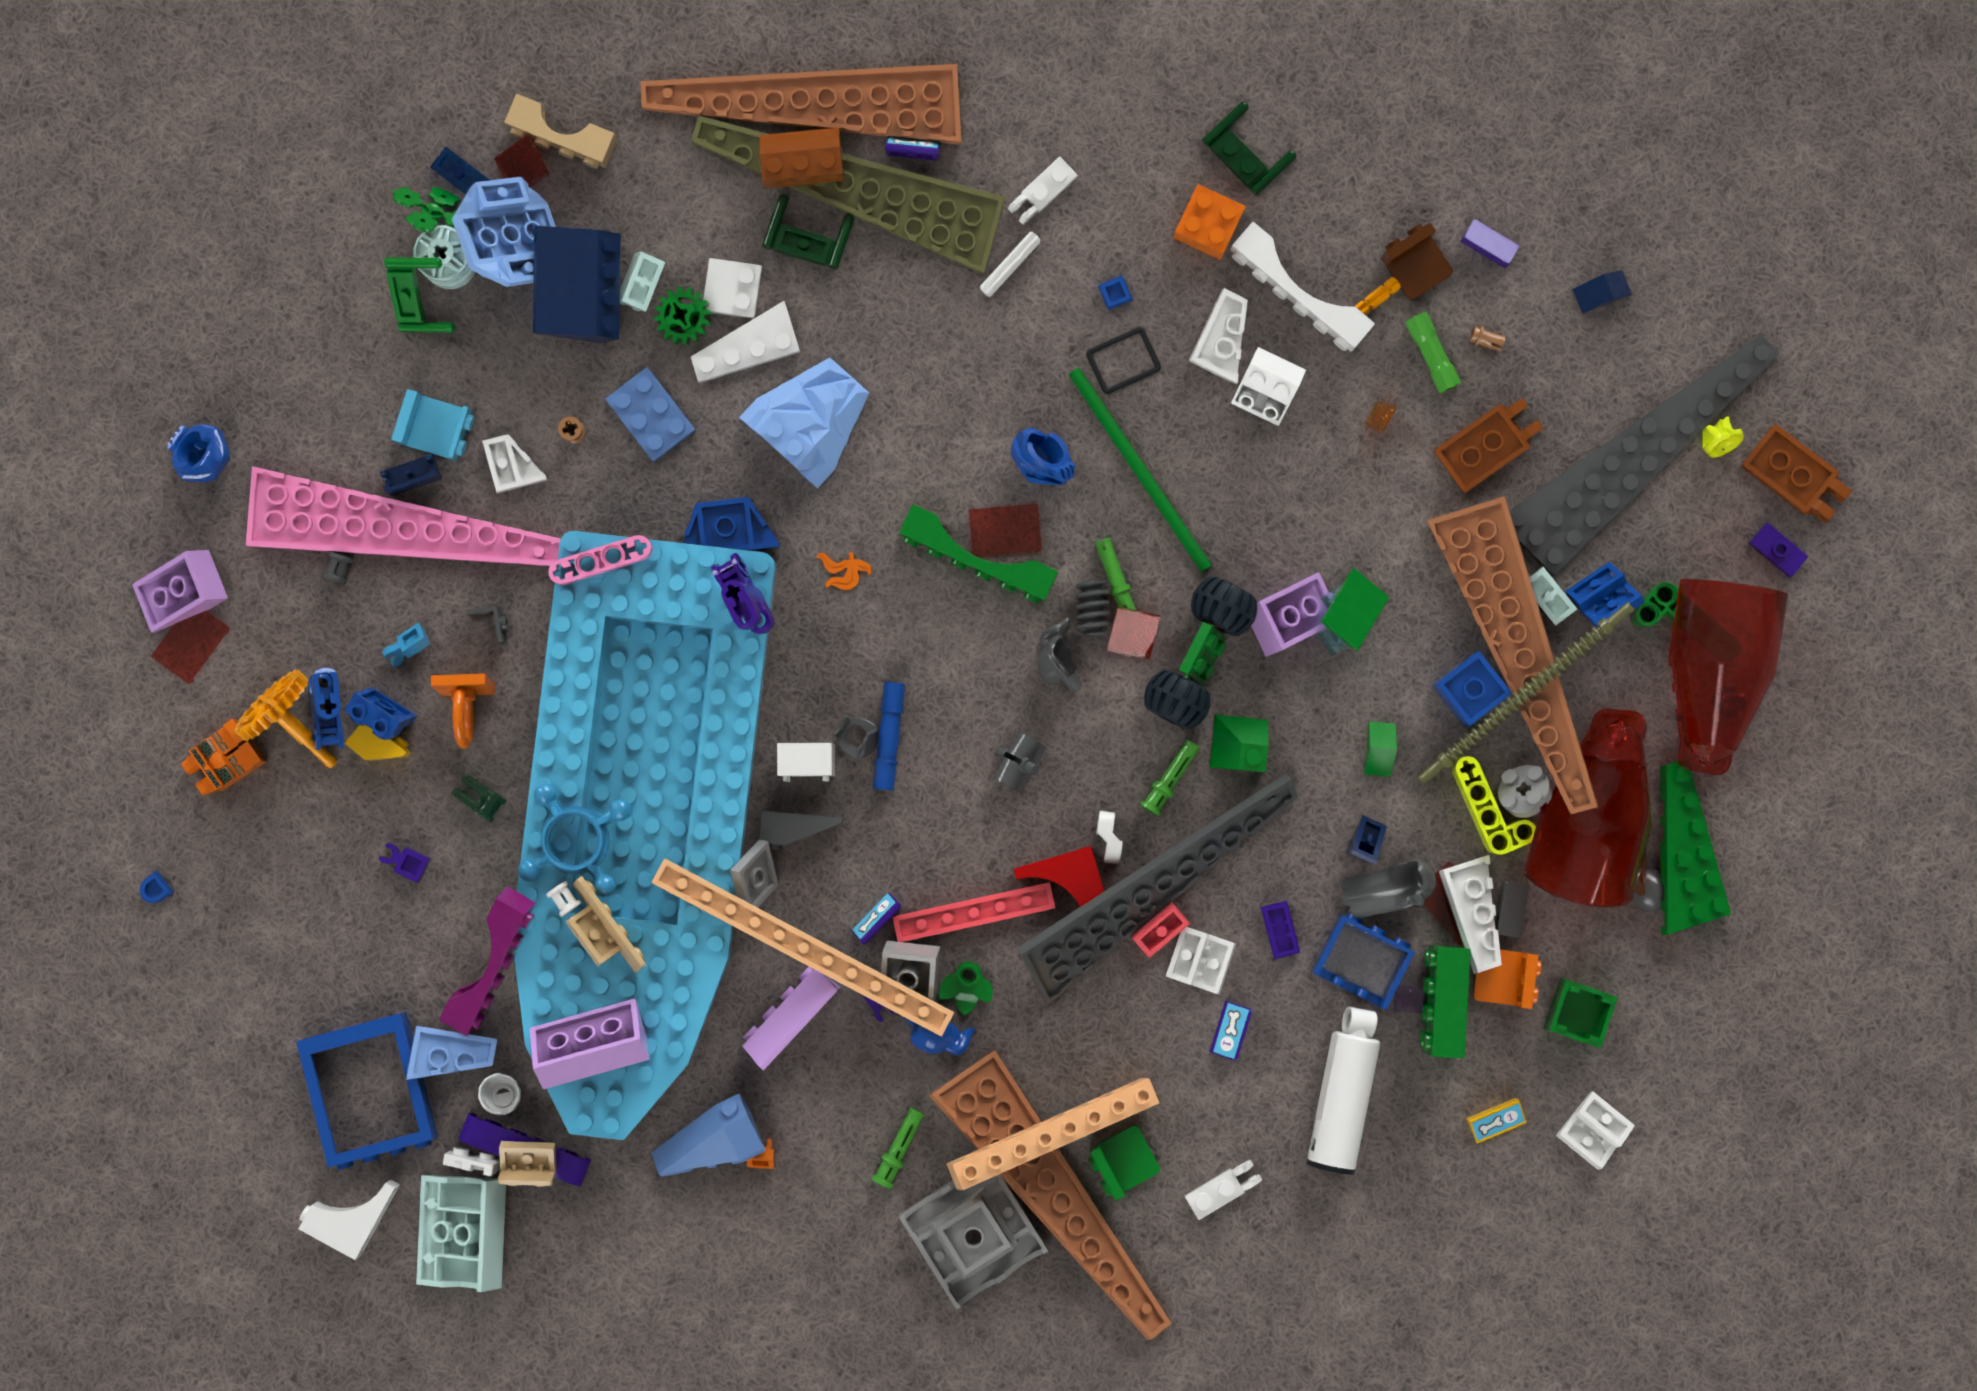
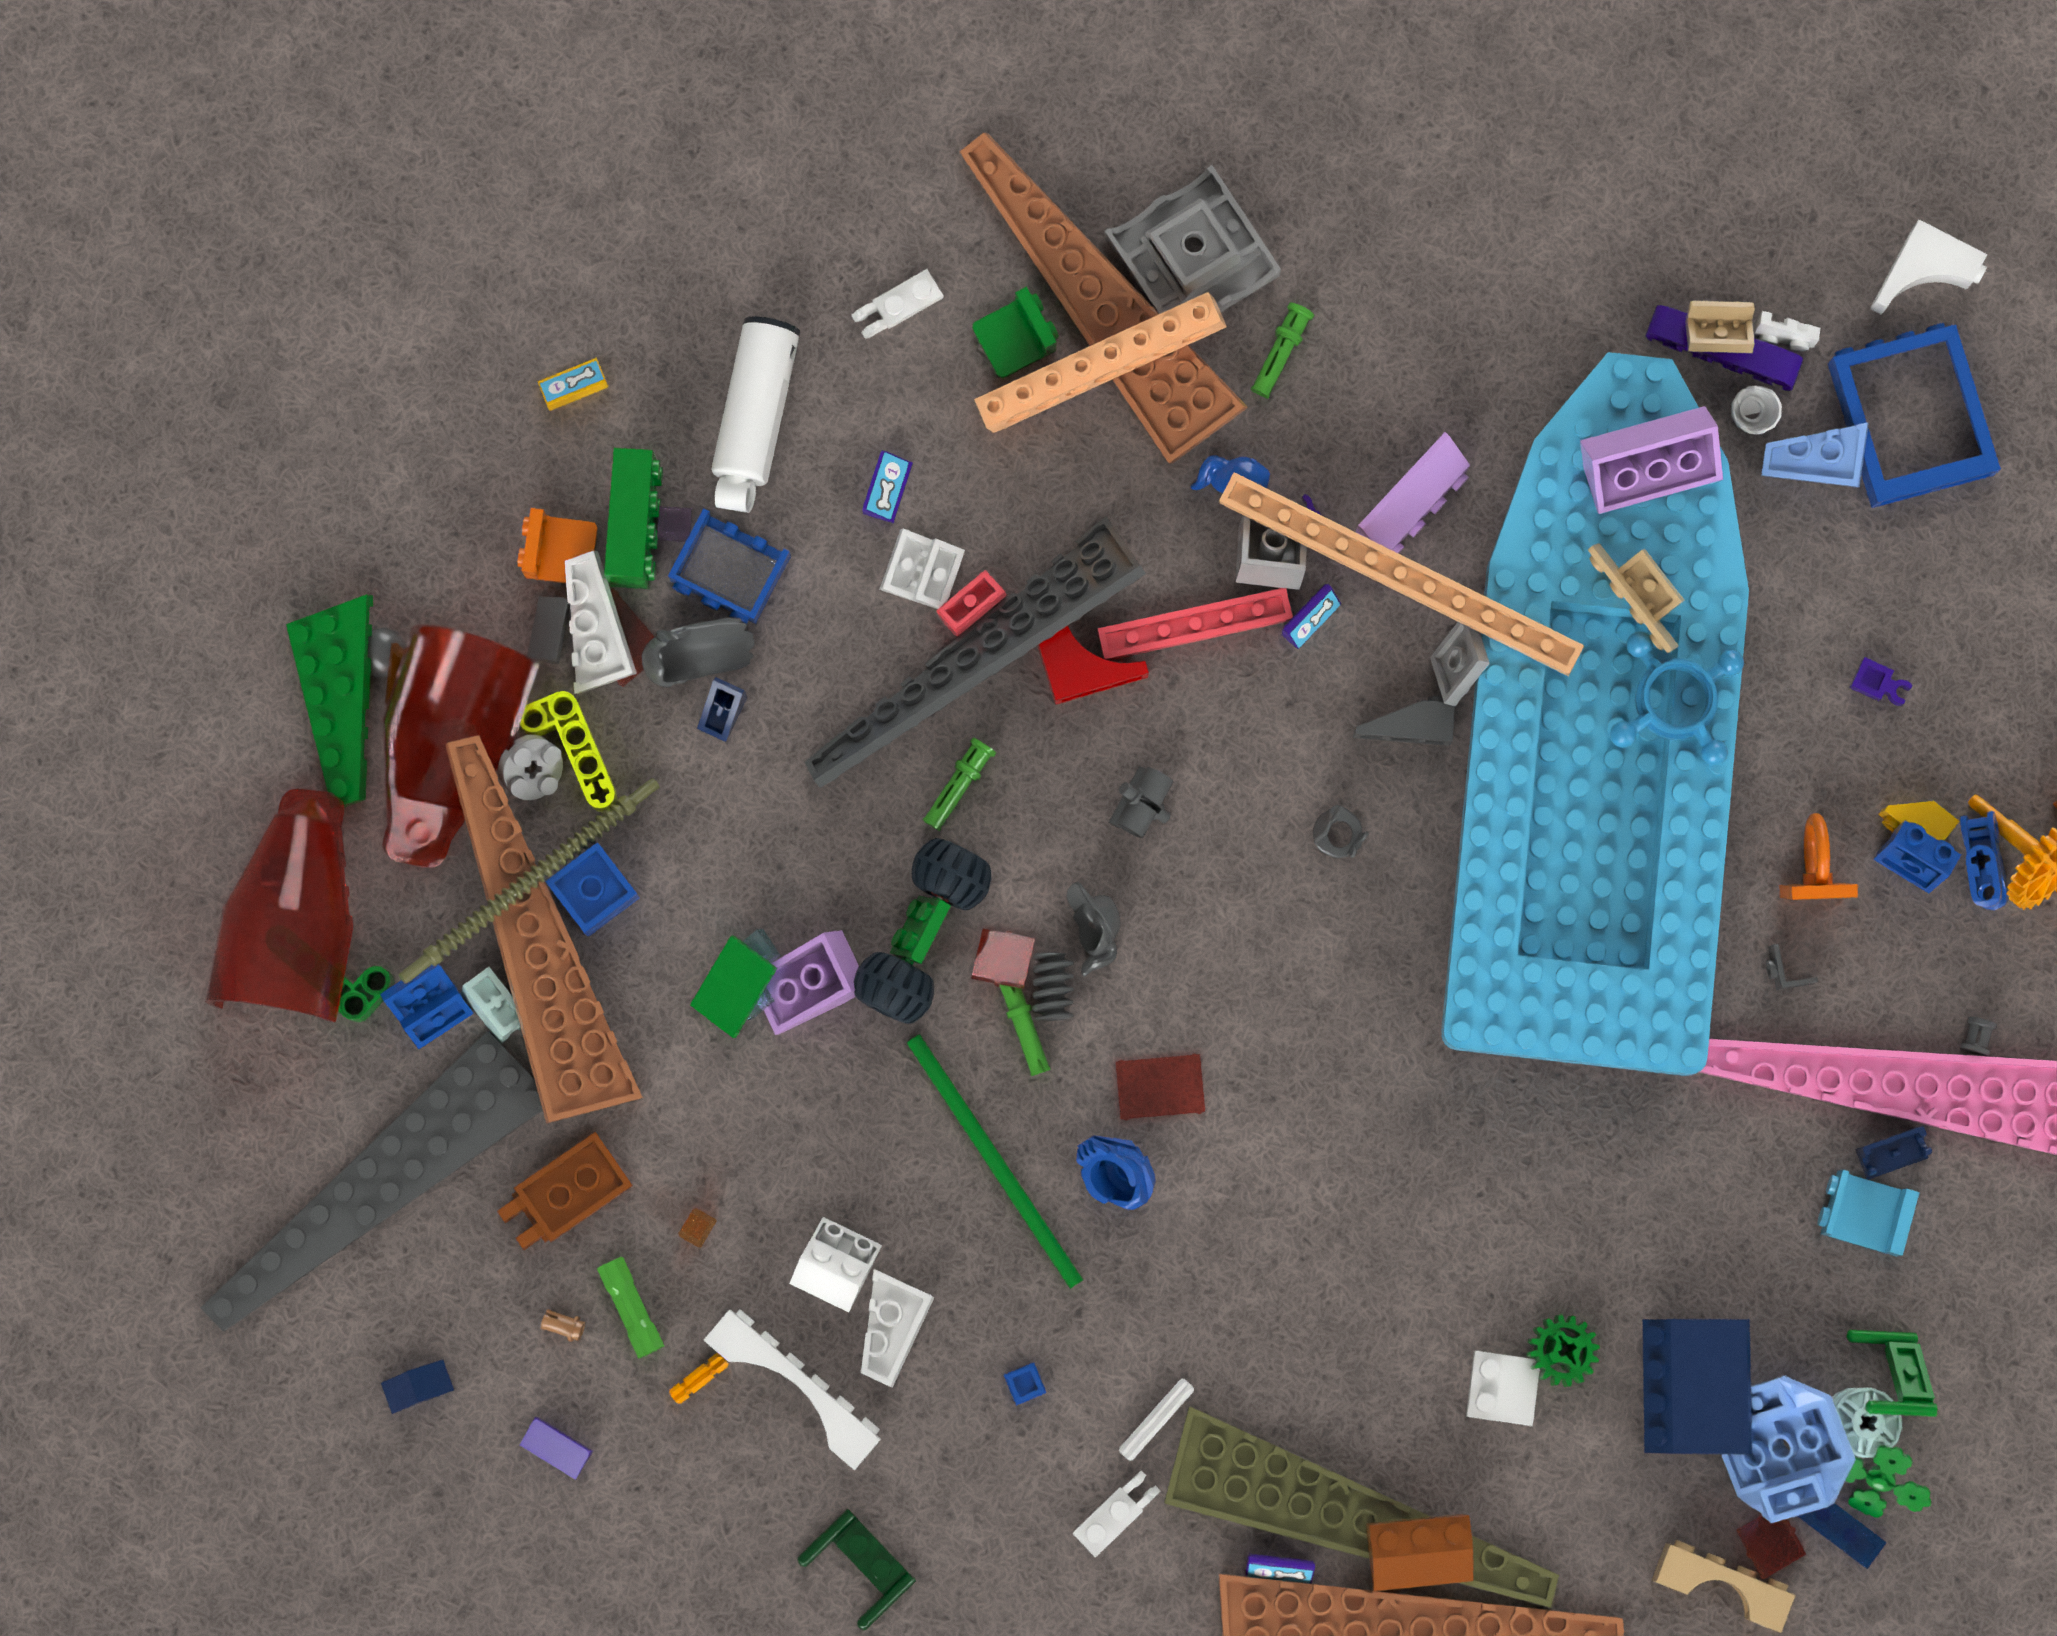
camera: 175 degrees right, 5 degrees down
(408, 644) = (1886, 943): dark azure plate -> none
(461, 1232) = (1795, 252): light aqua piece -> none
(489, 799) = (1781, 756): clear green piece -> none
(505, 921) = (1756, 596): magenta arch -> none
(510, 465) = (1771, 1164): white wing -> none
(564, 427) = (1705, 1212): medium nougat bush -> none
(564, 890) = (1677, 624): white bush -> none
(601, 563) = (1657, 1037): bright pink beam -> none
(640, 281) = (1617, 1394): light aqua hinge -> none
(650, 414) = (1600, 1228): medium blue plate -> none
(716, 1137) = (1498, 359): medium blue wedge -> none
(729, 525) = (1500, 1087): blue wing -> none
(742, 596) = (1483, 987): dark purple piece -> none
(754, 343) = (1473, 1318): white wing -> none
(765, 1159) = (1444, 339): orange tile -> none
(805, 244) = (1415, 1444): dark green plate -> none
(805, 760) = (1400, 801): white container -> none
(809, 418) = (1403, 1223): light blue wedge -> none
(851, 577) = (1348, 1028): orange piece -> none
(889, 736) = (1299, 833): blue piece -> none
(966, 991) = (1205, 533): green plate -> none
(1028, 577) = (1256, 1083): green arch -> none
(1105, 830) = (1028, 706): white piece -> none
(1138, 330) = (995, 1337): black piece -> none
(1209, 222) = (908, 1471): orange brick -> none
(1239, 743) = (874, 825): green slope -> none
(1280, 929) = (827, 604): dark purple plate -> none
(1380, 749) = (703, 820): green slope -> none
(1416, 261) = (648, 1421): reddish brown bracket -> none
(1580, 1012) = (471, 507): green container -> none
(1595, 1130) = (455, 372): white slope -> none
(1719, 437) = (277, 1203): neon yellow piece -> none
(1778, 550) = (211, 1063): dark purple plate -> none
(1795, 473) = (187, 1158): dark orange tile -> none

